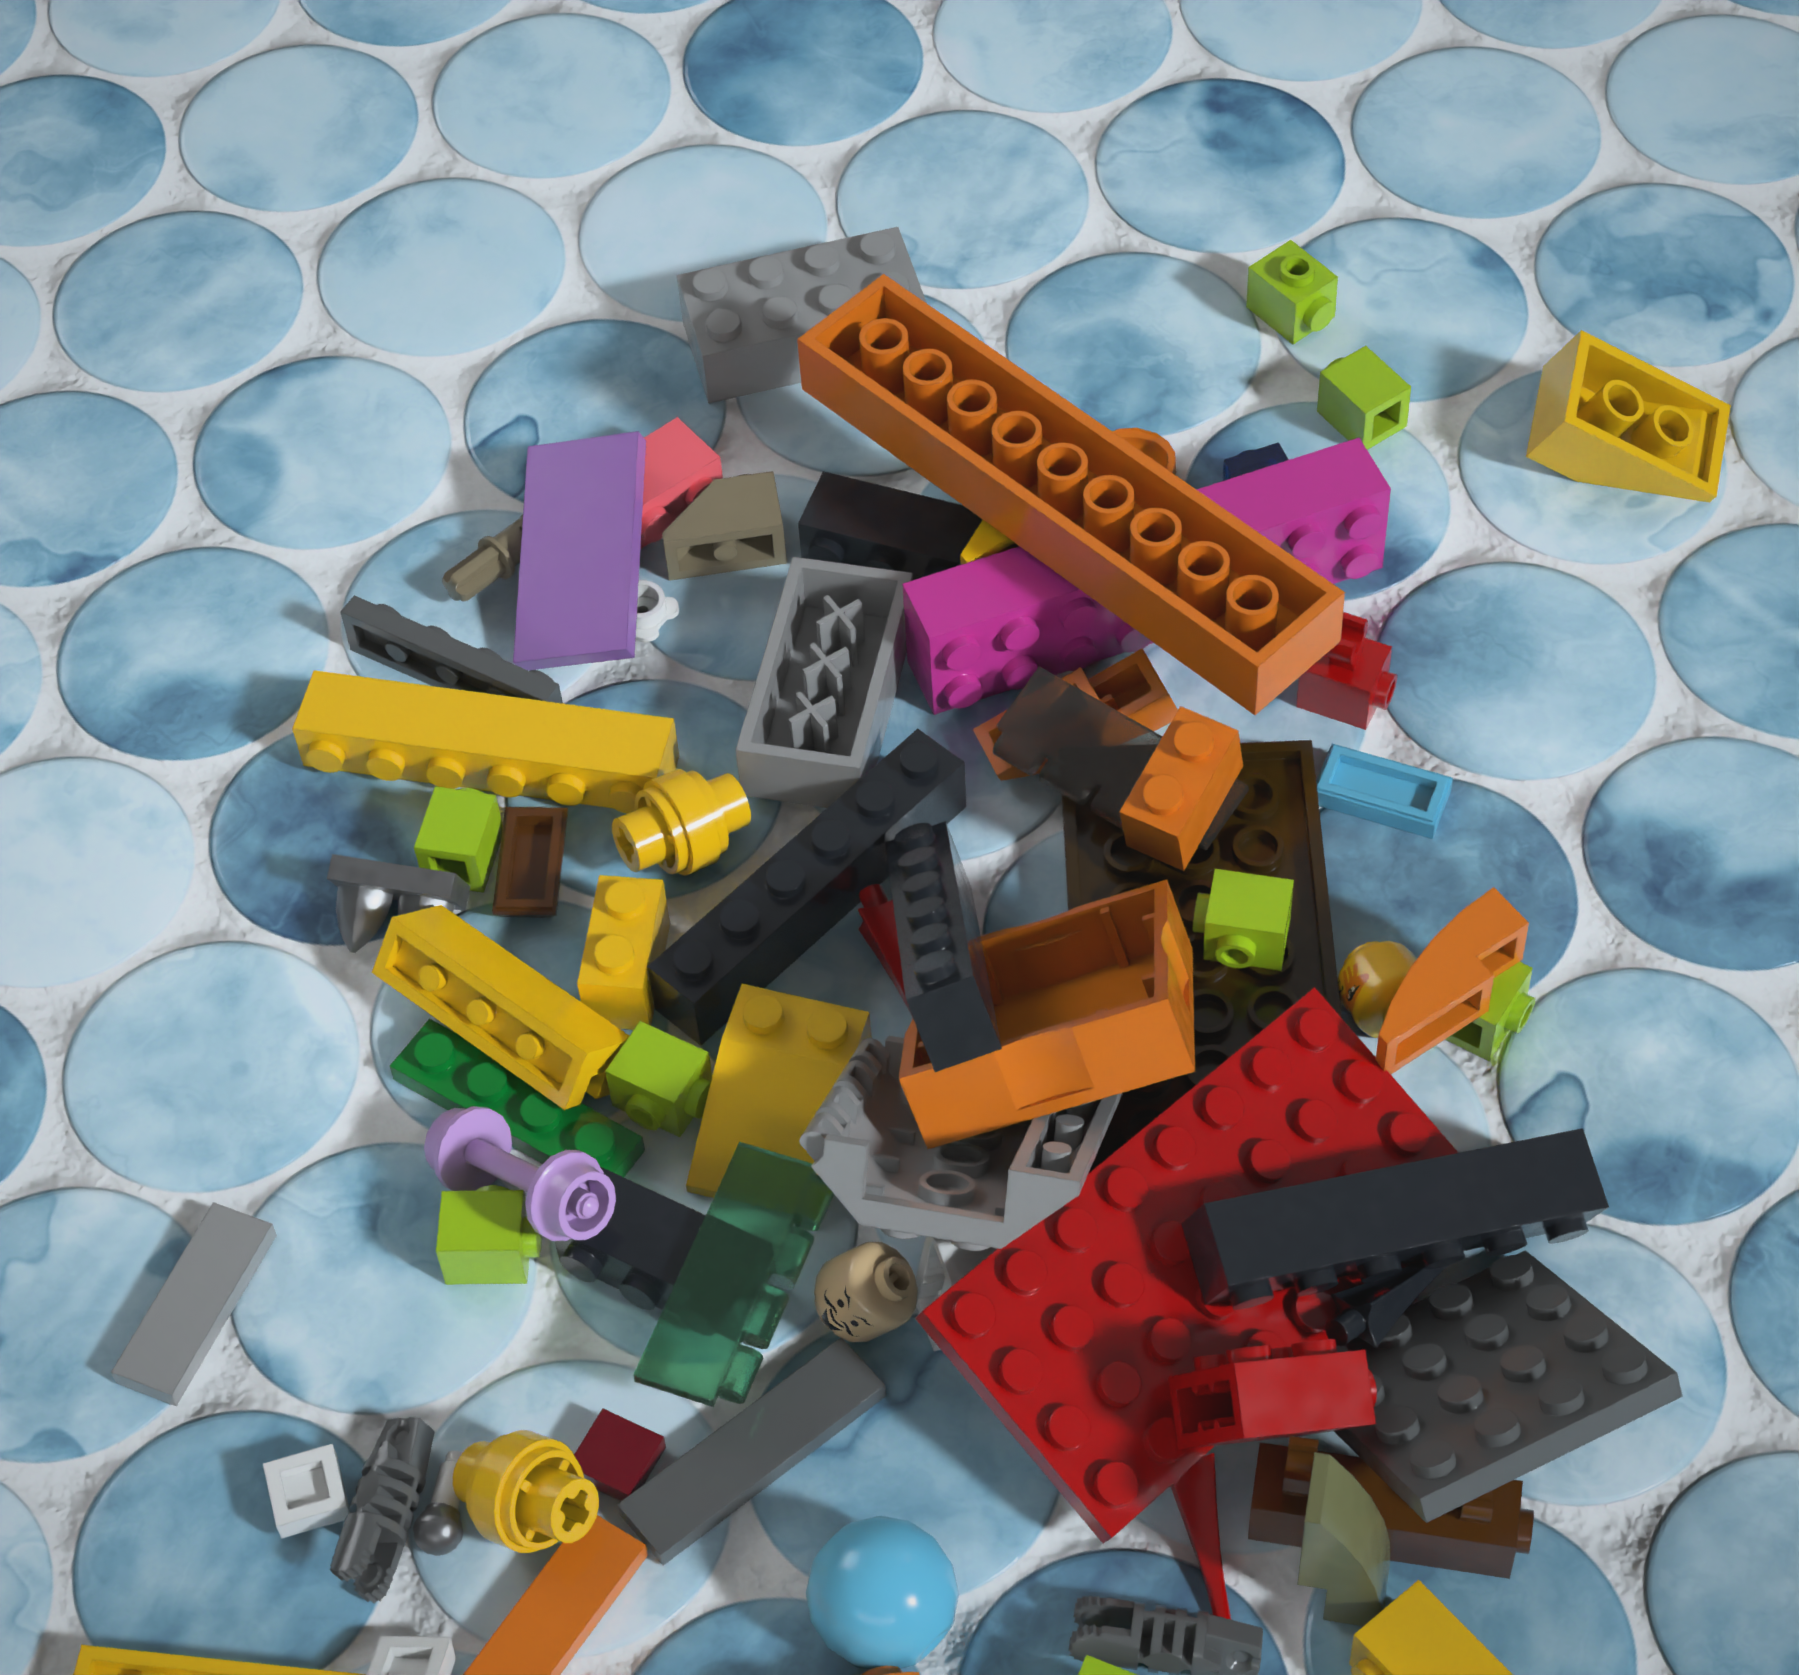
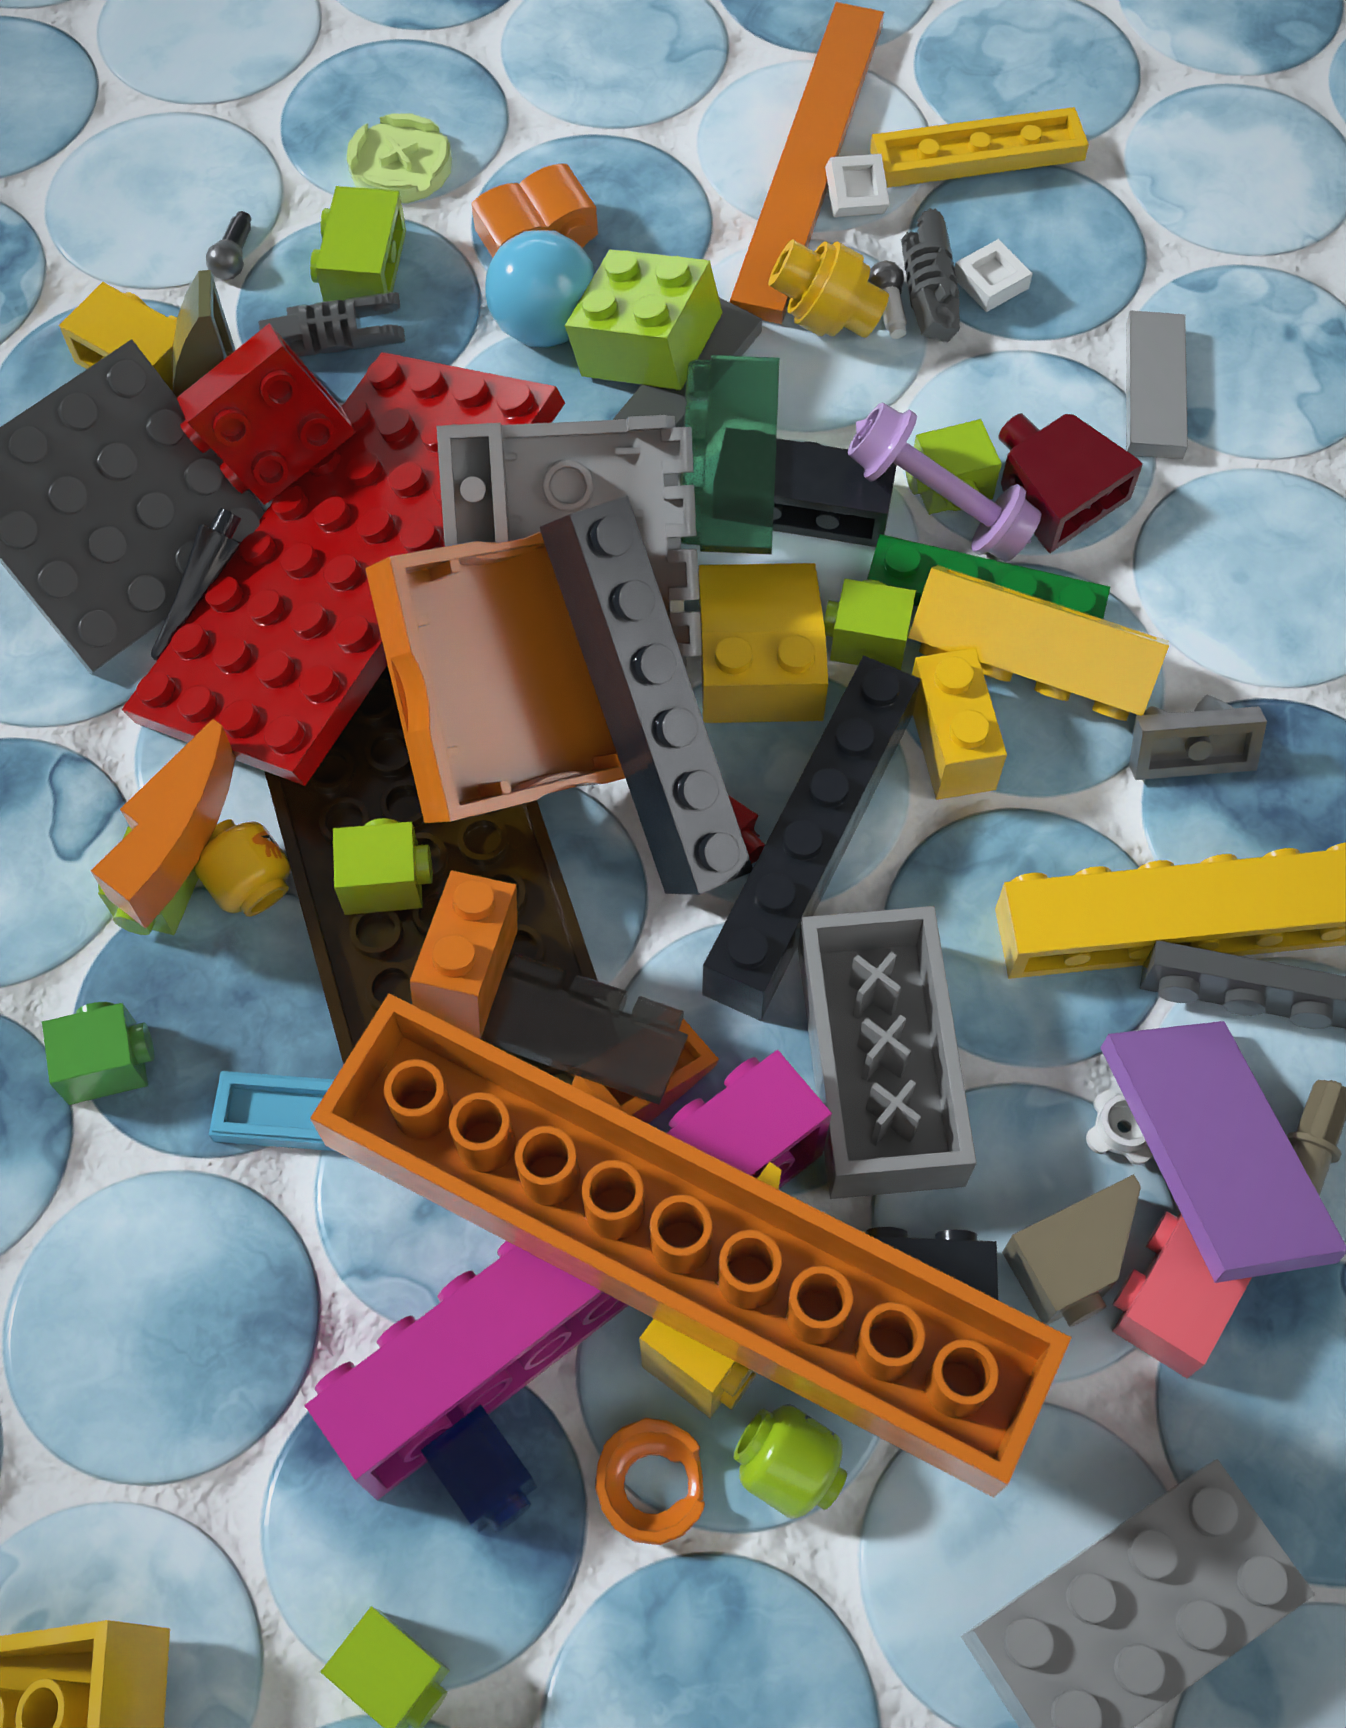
camera: 160 degrees right, 10 degrees up
(371, 1194) = (1067, 474): none -> dark red torso
(460, 835) = (1167, 803): lime brick -> none
(530, 862) = (1091, 810): reddish brown tile -> none
(618, 1454) = (790, 348): dark red tile -> none
(681, 822) = (962, 856): yellow piece -> none
(767, 1501) = (644, 318): none -> lime brick
(1349, 678) = (337, 1224): red brick -> none
(1394, 1217) = (189, 608): black brick -> none
(1549, 857) = (96, 1052): none -> bright green brick

